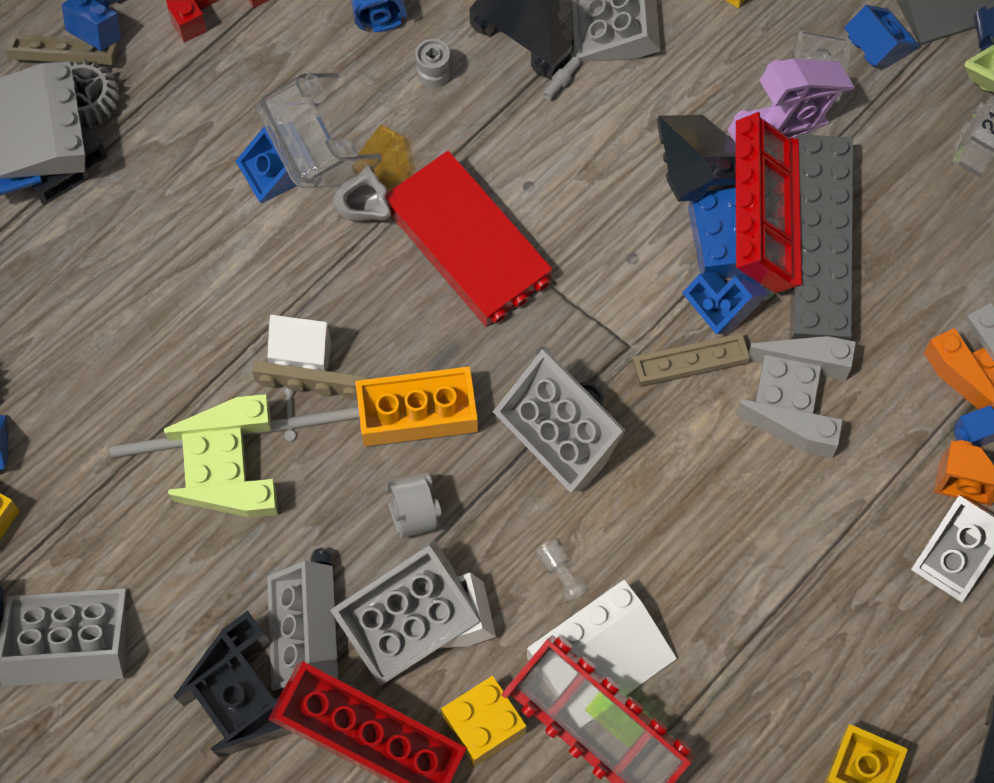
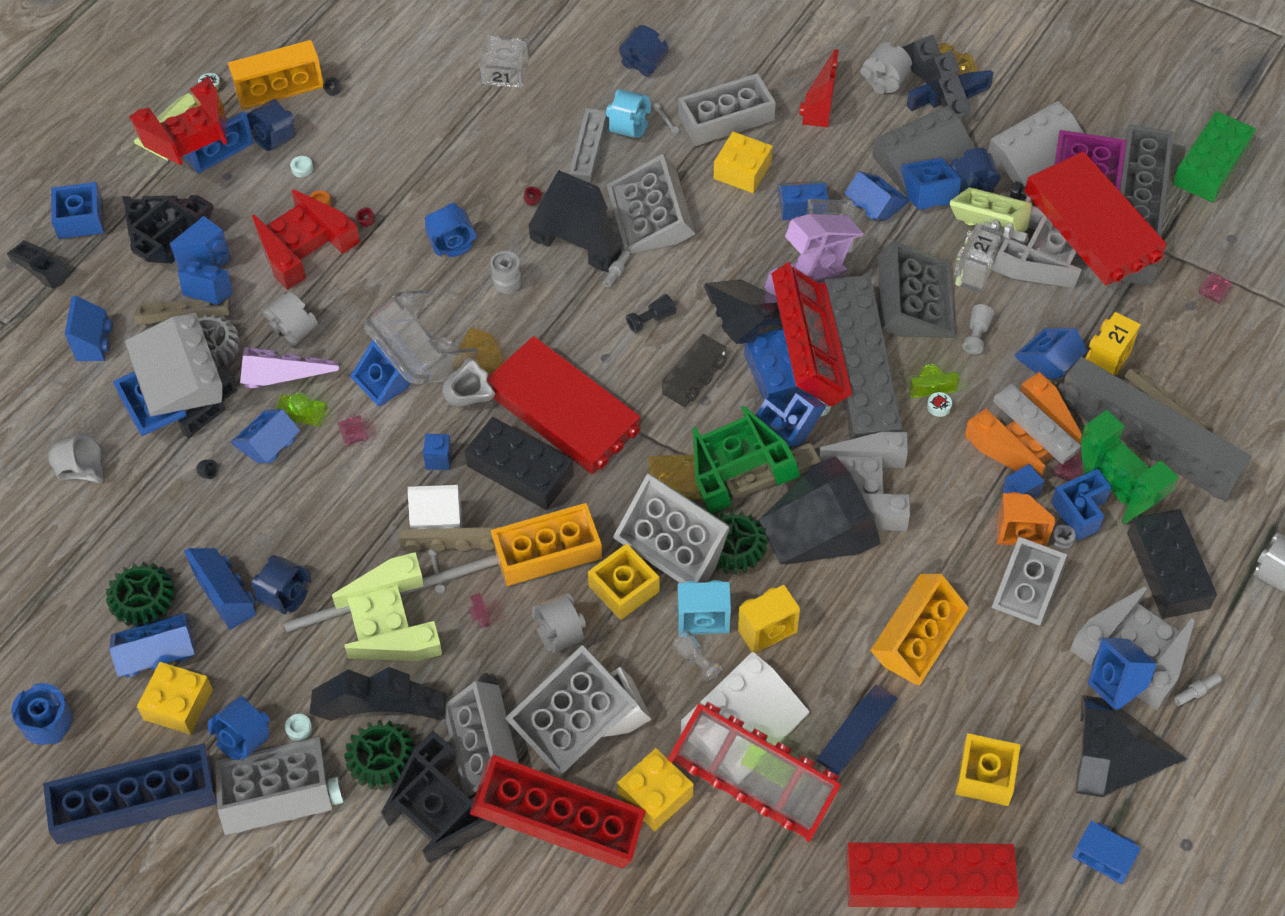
camera: 10 degrees left, 10 degrees down
(37, 567) = (239, 729): none -> blue brick
(47, 392) = (221, 585): none -> blue slope
(58, 245) = (207, 469): none -> black hinge
(104, 573) = (298, 727): none -> light aqua tile
(112, 403) = (281, 584): none -> dark blue brick
(128, 219) = (266, 436): none -> slope
(131, 656) = (335, 790): none -> light aqua tile
(142, 136) = (266, 368): none -> lavender wedge
(172, 193) = (302, 409): none -> clear neon green tile
(178, 81) = (290, 318): none -> light grey brick
(194, 554) = (383, 692): none -> black arch
(195, 614) = (367, 742): none -> dark green gear
(225, 229) = (352, 430): none -> clear pink plate
(315, 271) = (437, 451): none -> blue brick
(326, 472) = (478, 611): none -> clear pink plate
(405, 301) = (519, 463): none -> black brick
(495, 467) = (623, 581): none -> yellow brick
(579, 347) = (676, 472): none -> clear yellow plate
(579, 515) = (704, 607): none -> medium azure brick
(599, 138) = (659, 309): none -> black piece
(626, 221) = (694, 370): none -> clear smoke brick
(650, 541) = (768, 618): none -> yellow brick
(652, 331) = (736, 450): none -> green wedge
(656, 442) = (748, 537): none -> dark green gear
(725, 692) = (856, 730): none -> dark blue slope
(734, 428) = (821, 517): none -> black wedge
(787, 19) = (795, 195): none -> blue slope
(822, 581) = (920, 628): none -> light orange slope
(900, 282) = (933, 381): none -> clear neon green tile
(902, 166) = (915, 293): none -> dark grey slope
(902, 309) = (939, 404): none -> light aqua tile
(948, 30) = (930, 183): none -> blue slope
(970, 216) = (979, 322): none -> light grey piece

